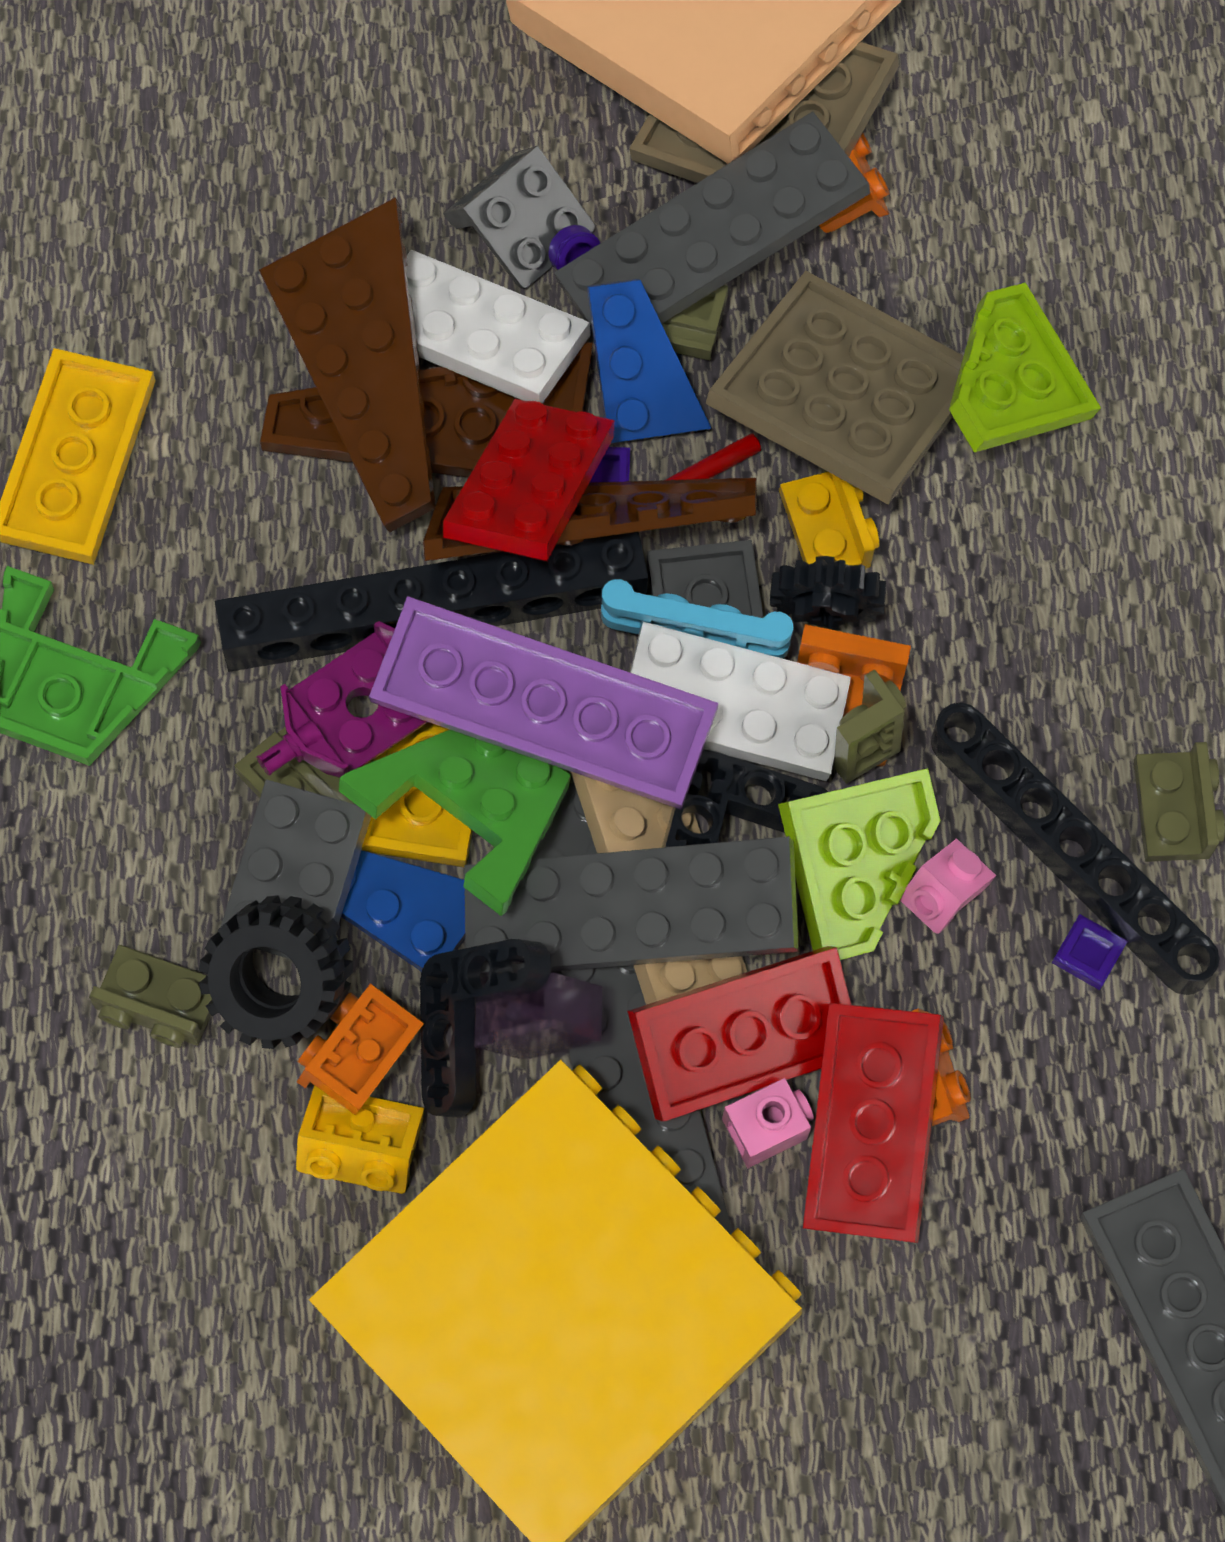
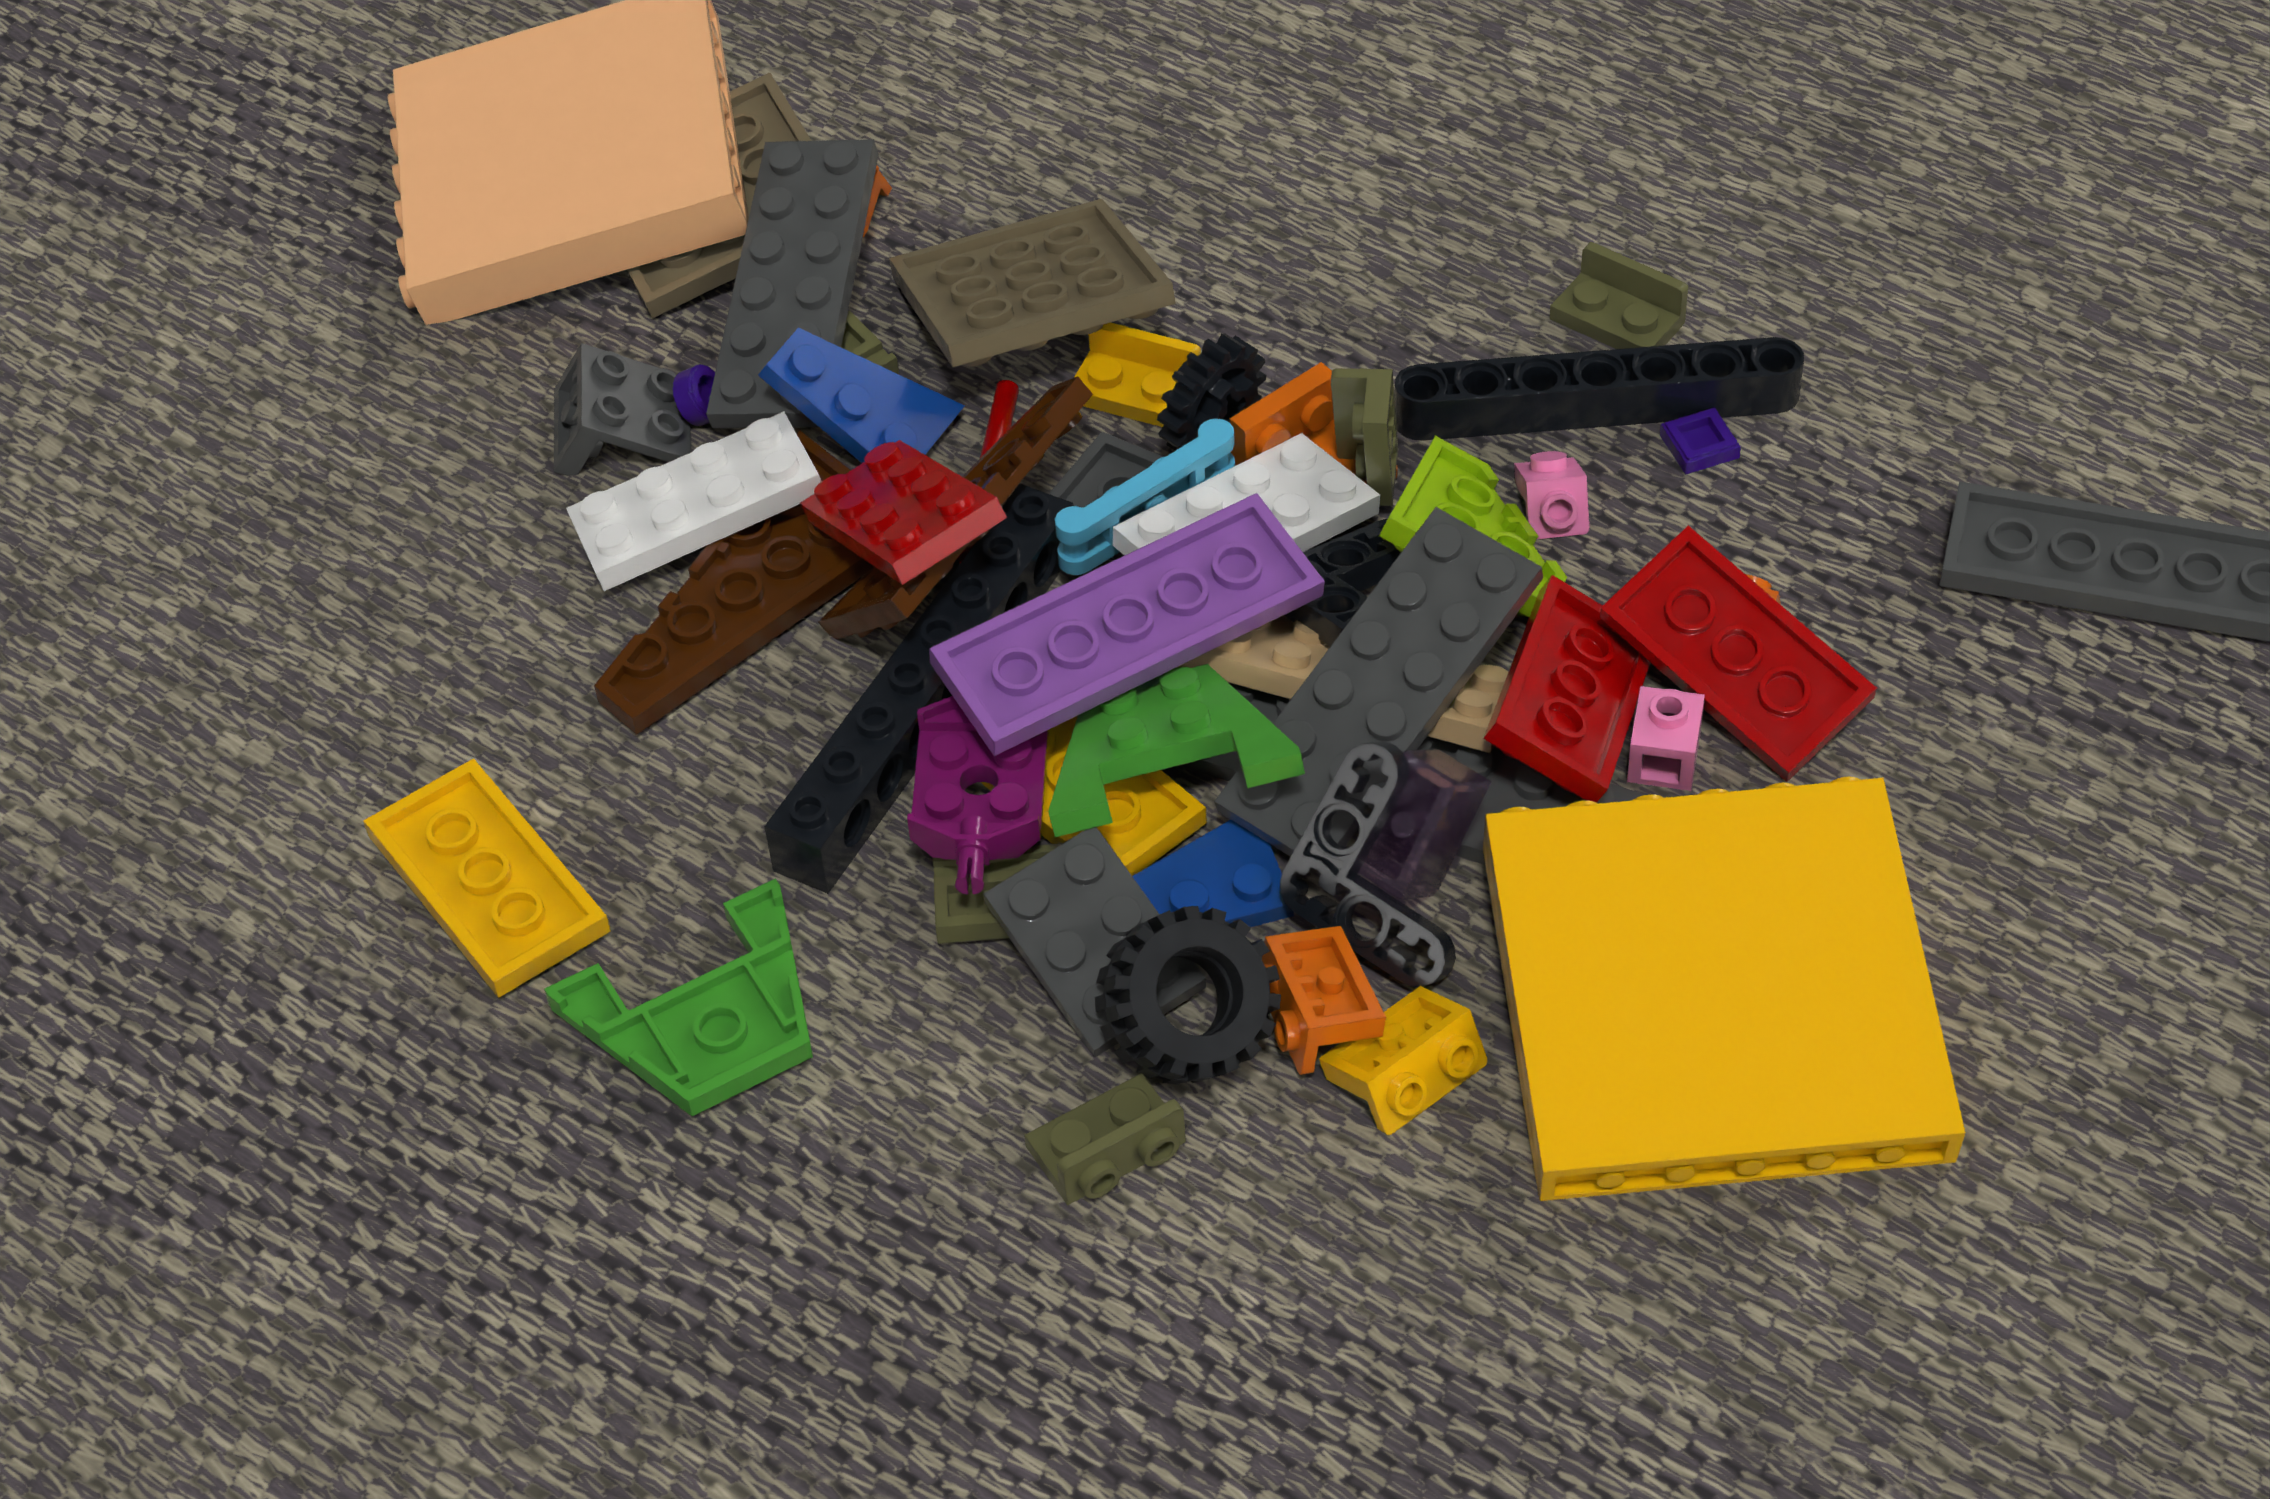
camera: 45 degrees left, 20 degrees down
(357, 336) = (613, 575): reddish brown wing -> none
(1016, 374) = (1131, 177): lime plate -> none

